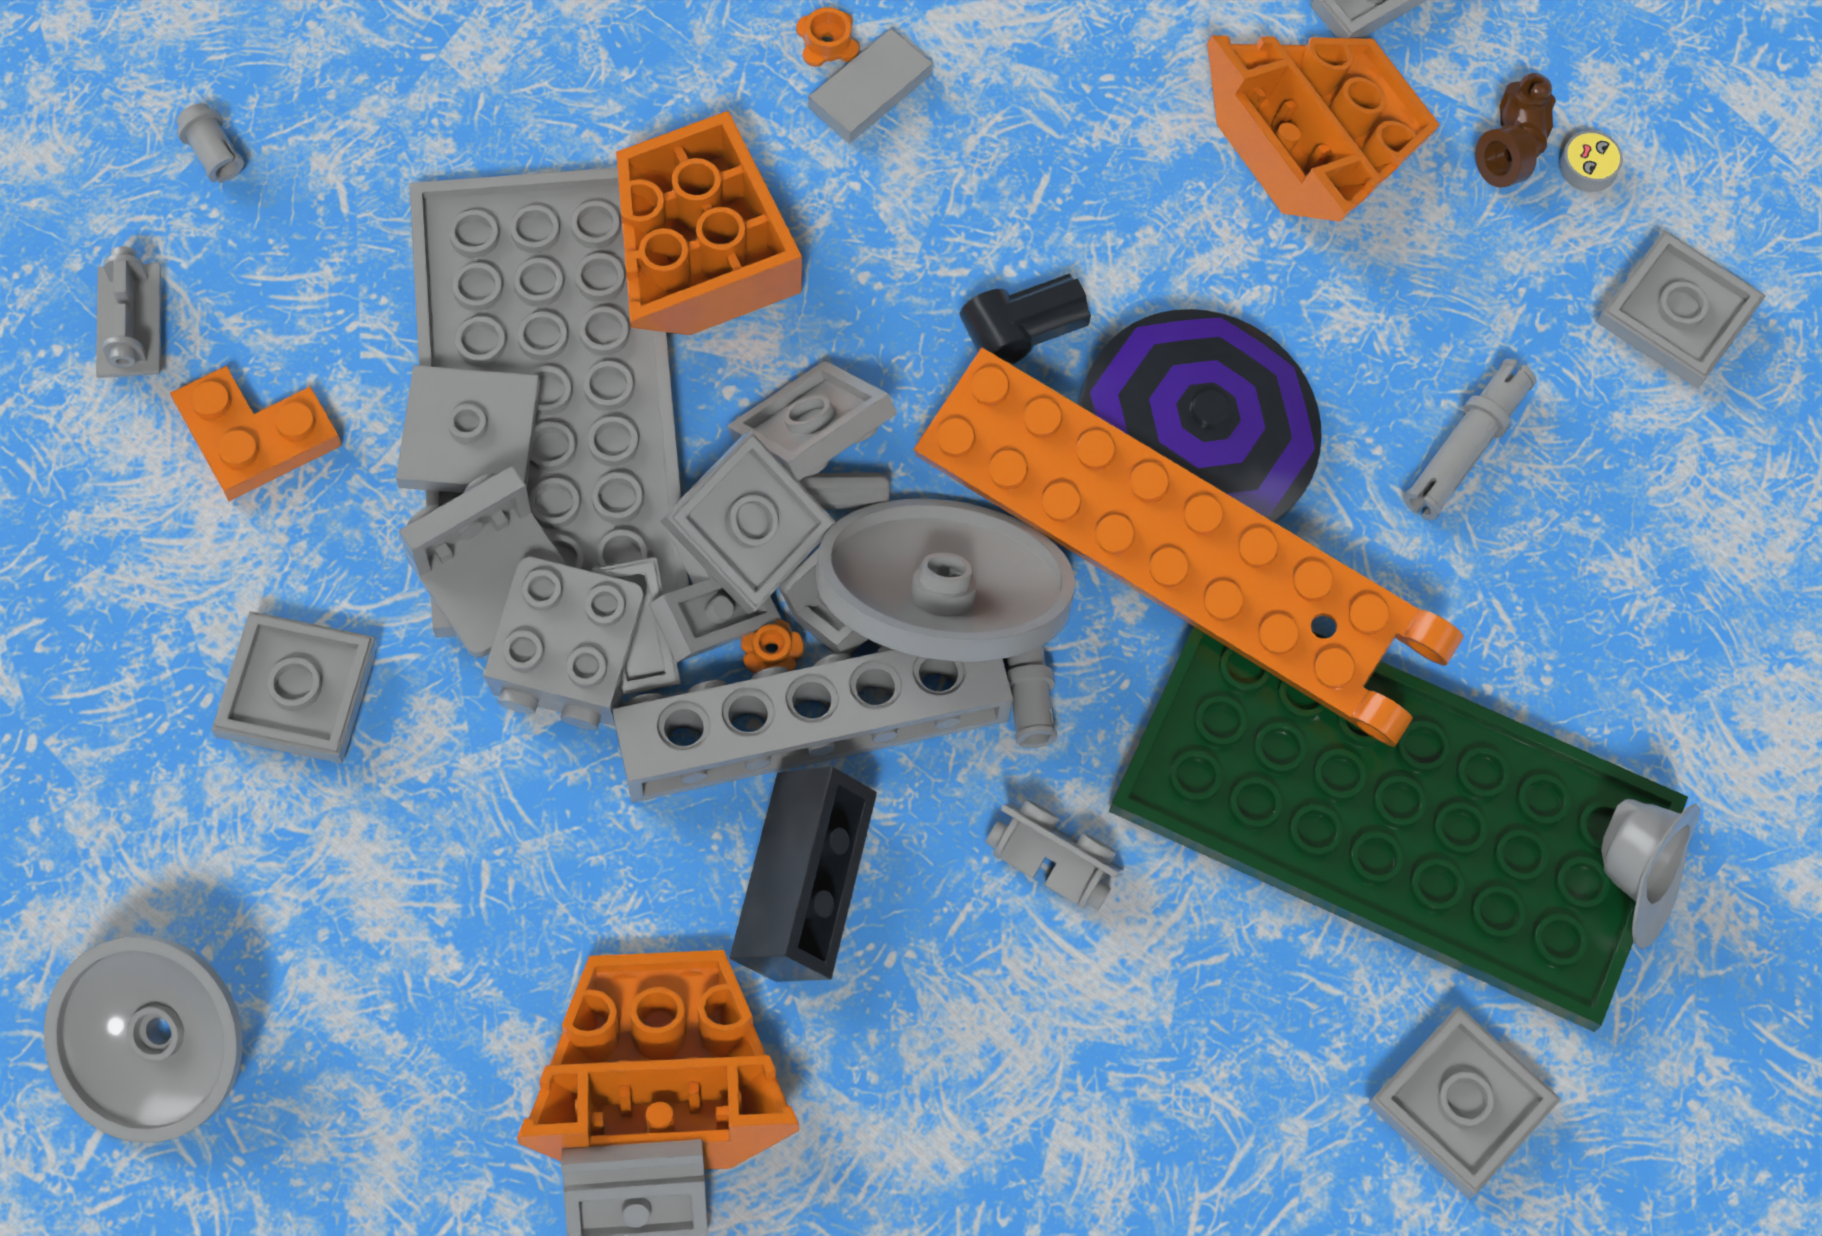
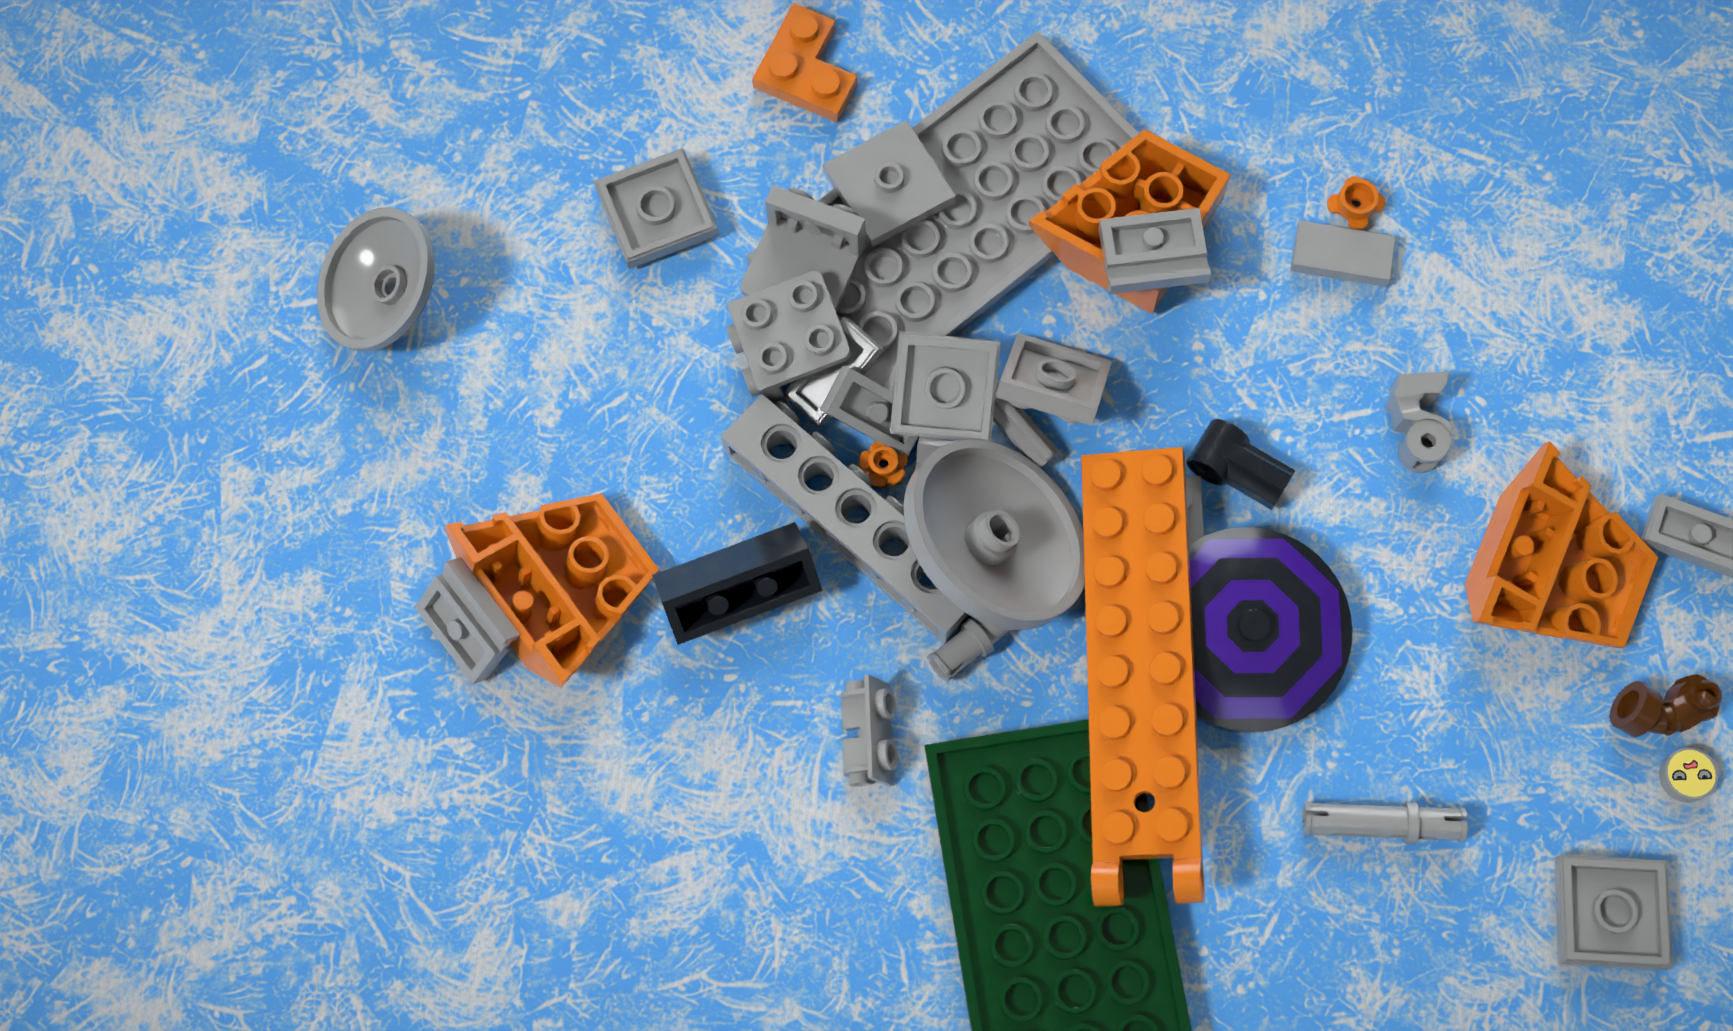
camera: 65 degrees right, 5 degrees up
(762, 226) = (1154, 250): none -> light grey plate
(1114, 143) = (1426, 434): none -> light grey leg

